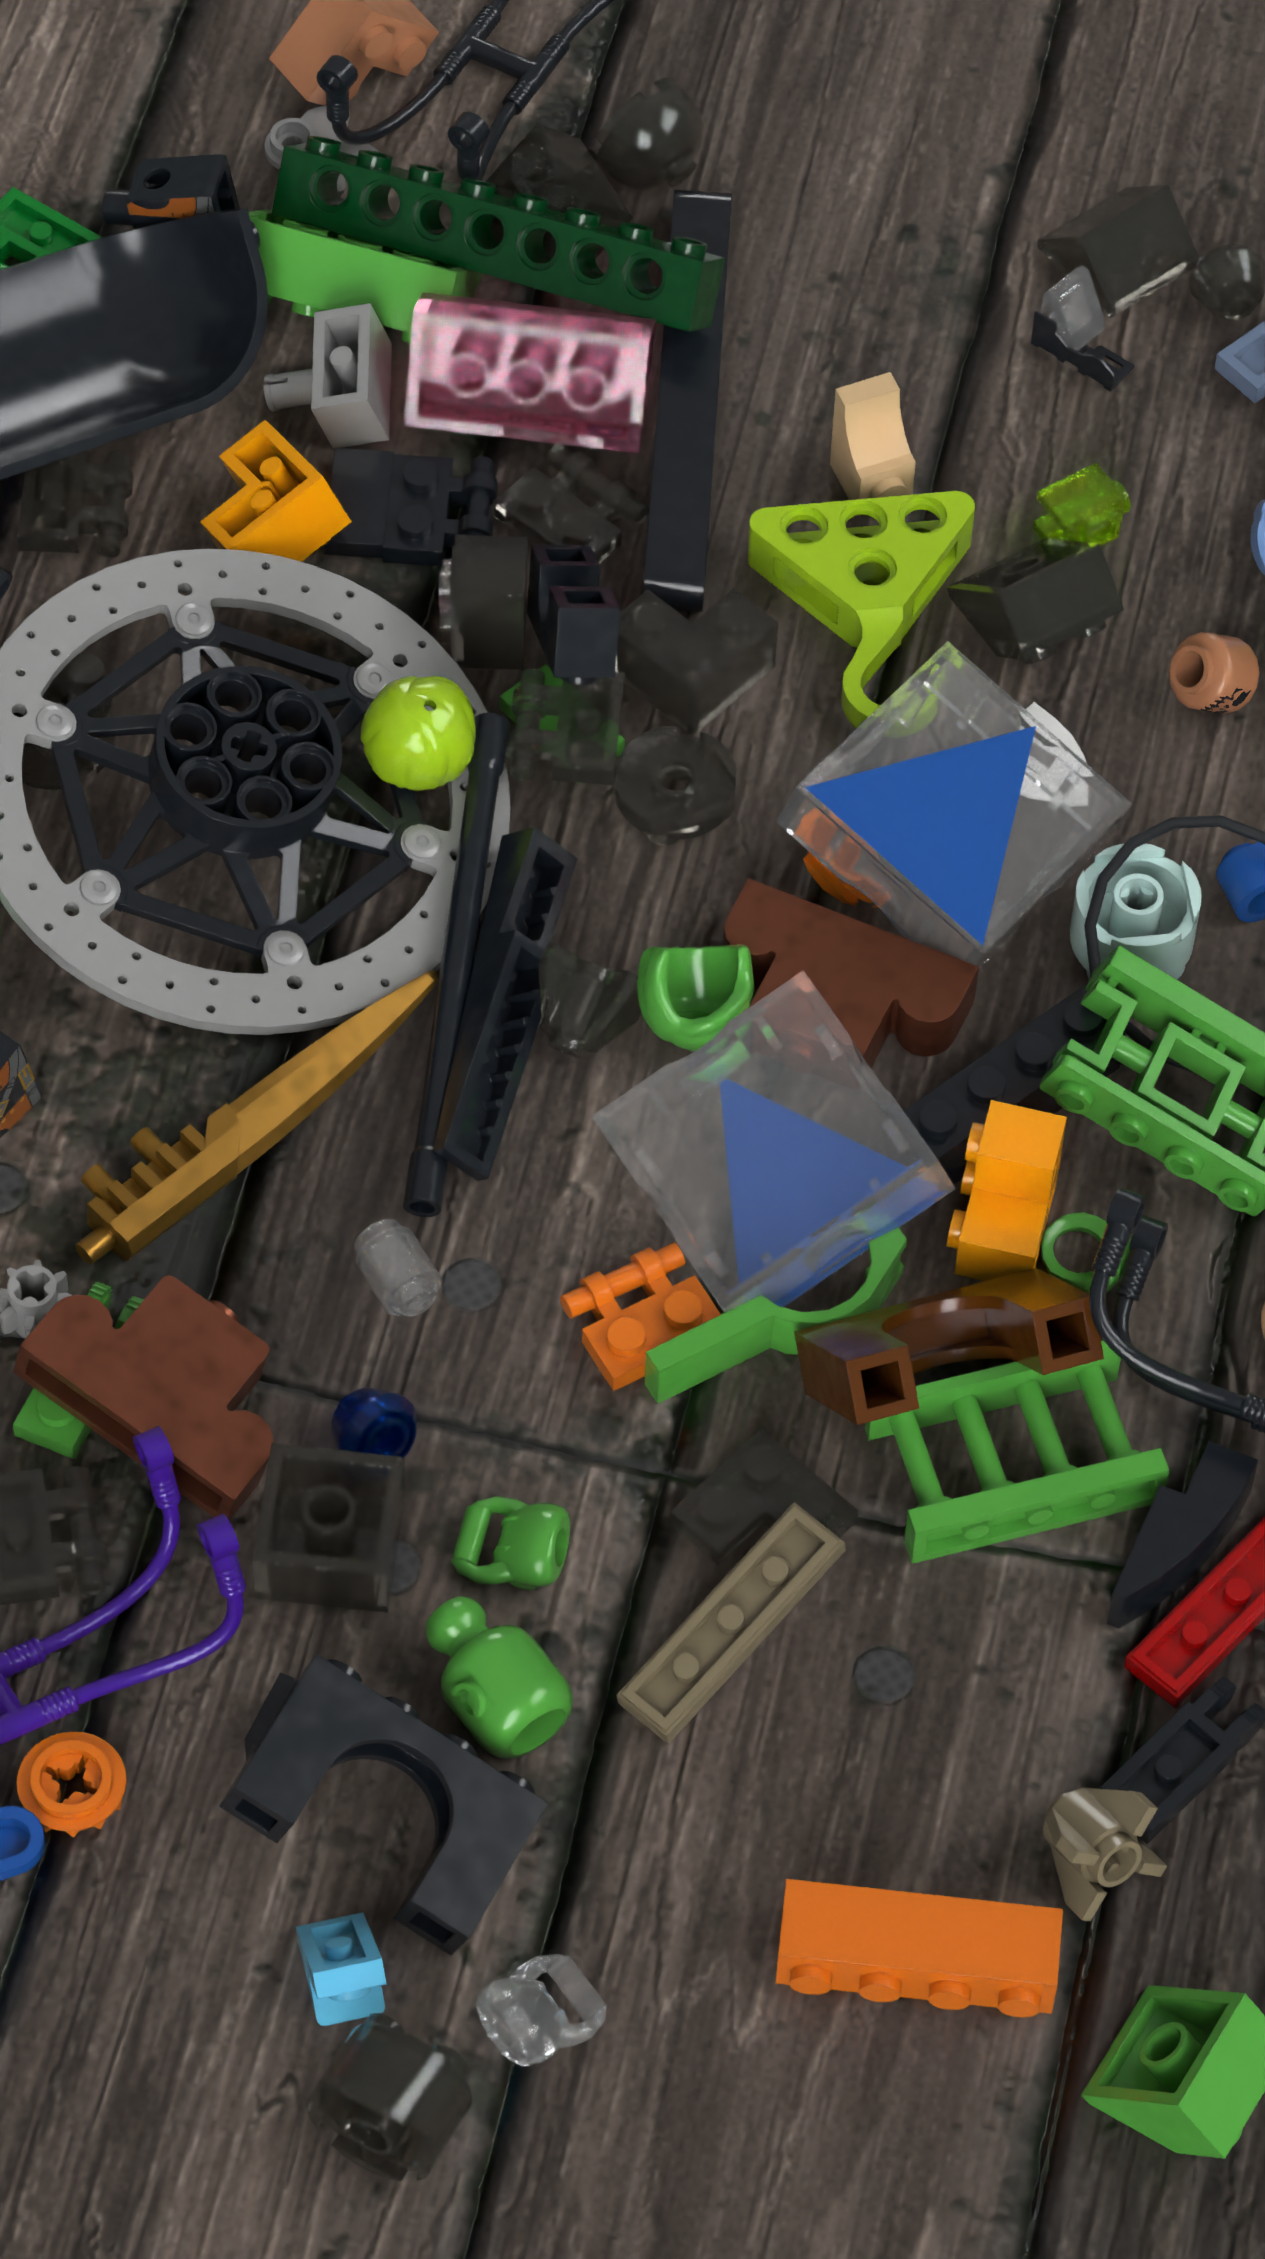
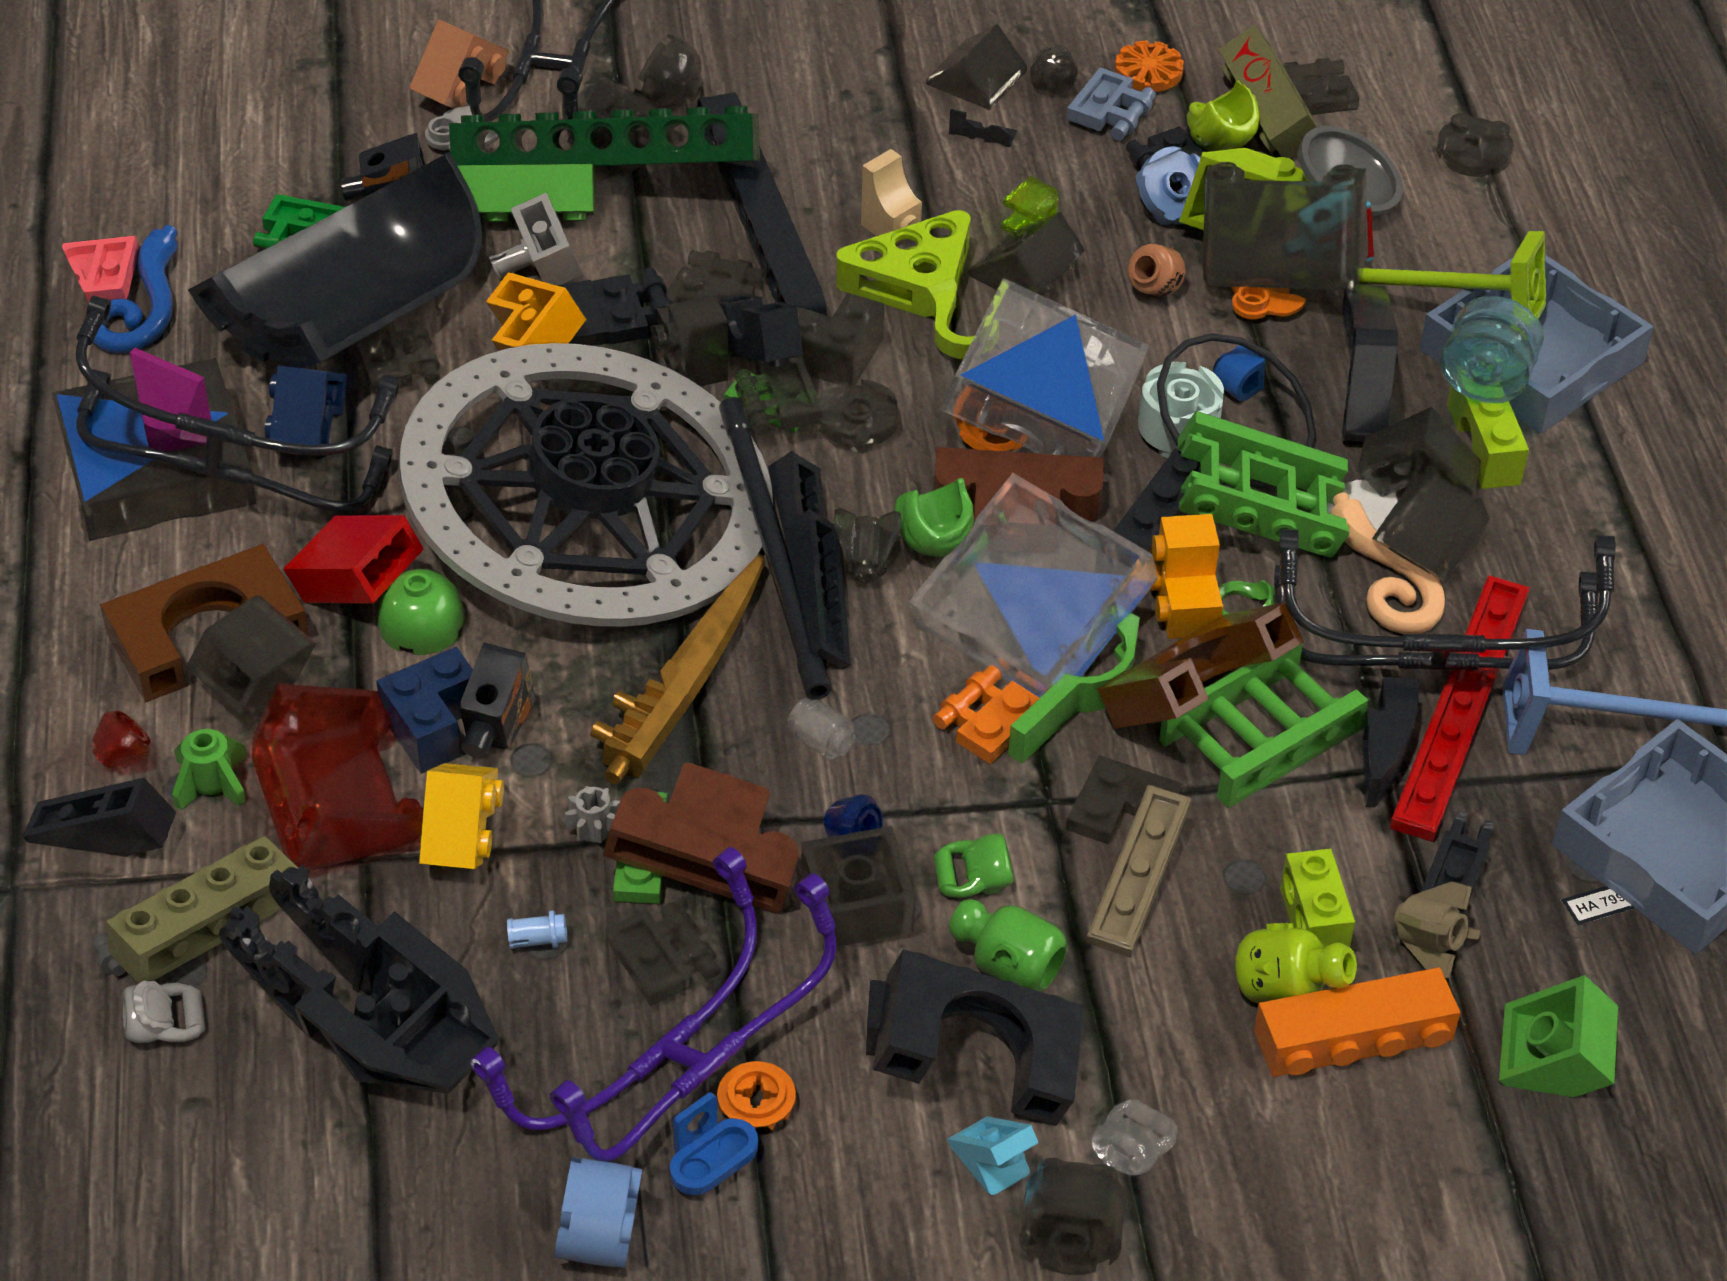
camera: 20 degrees left, 10 degrees down
(417, 745) = (693, 416): lime piece -> none
(529, 372) = (661, 209): clear pink brick -> none
(858, 1835) = (1290, 963): none -> lime piece
(948, 1755) = (1317, 896): none -> lime brick
(1074, 308) = (969, 100): clear slope -> none

